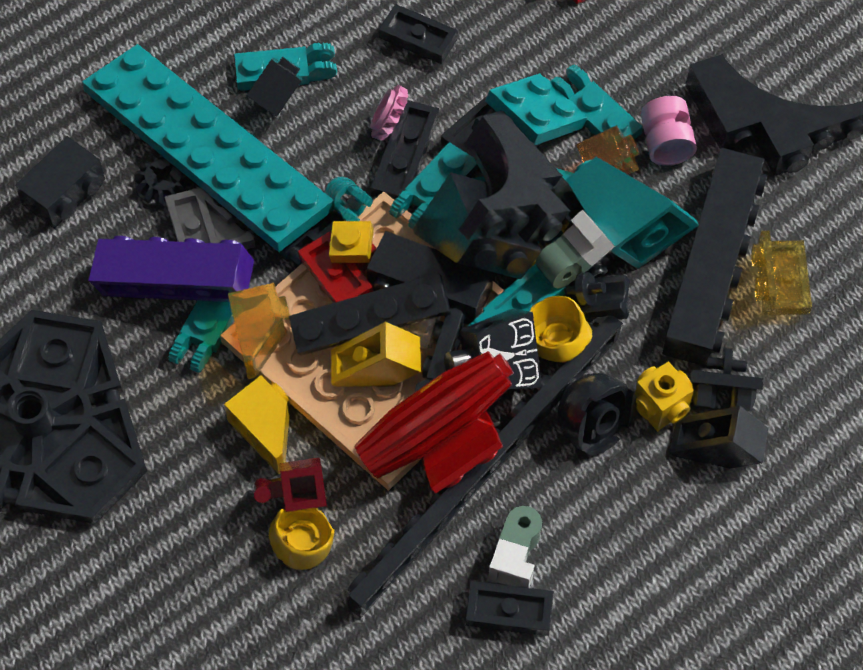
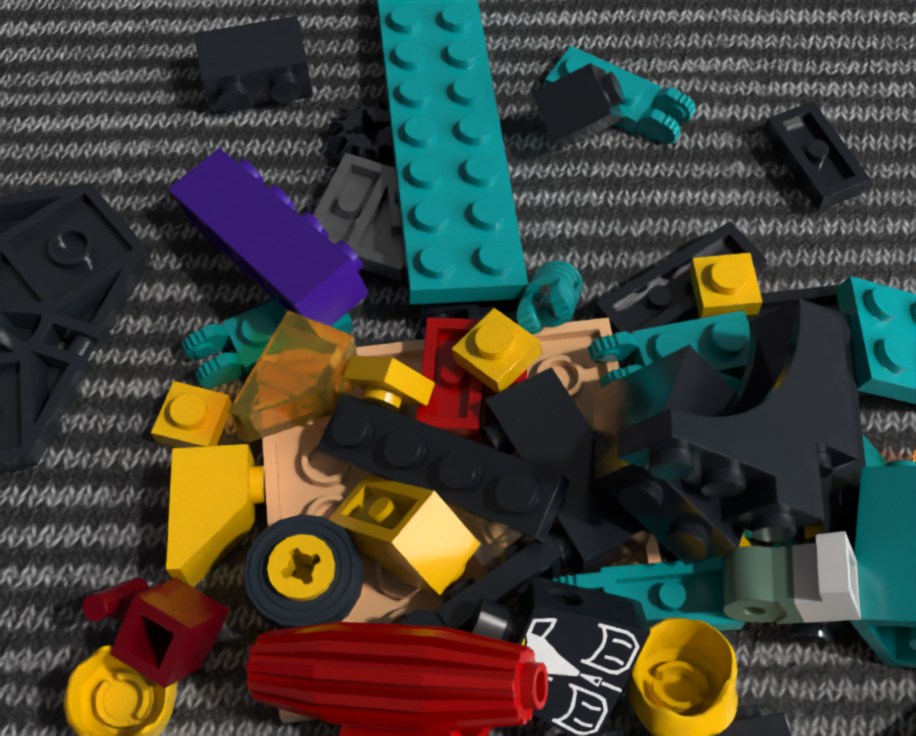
camera: 40 degrees right, 0 degrees up
(207, 390) = (191, 417): none -> yellow plate
(309, 293) = (388, 382): none -> yellow plate
(347, 426) = (312, 594): none -> black wheel
(388, 112) = (695, 223): bright pink gear -> none
(430, 135) = (725, 285): none -> yellow plate
(600, 296) = (787, 673): black hips -> none

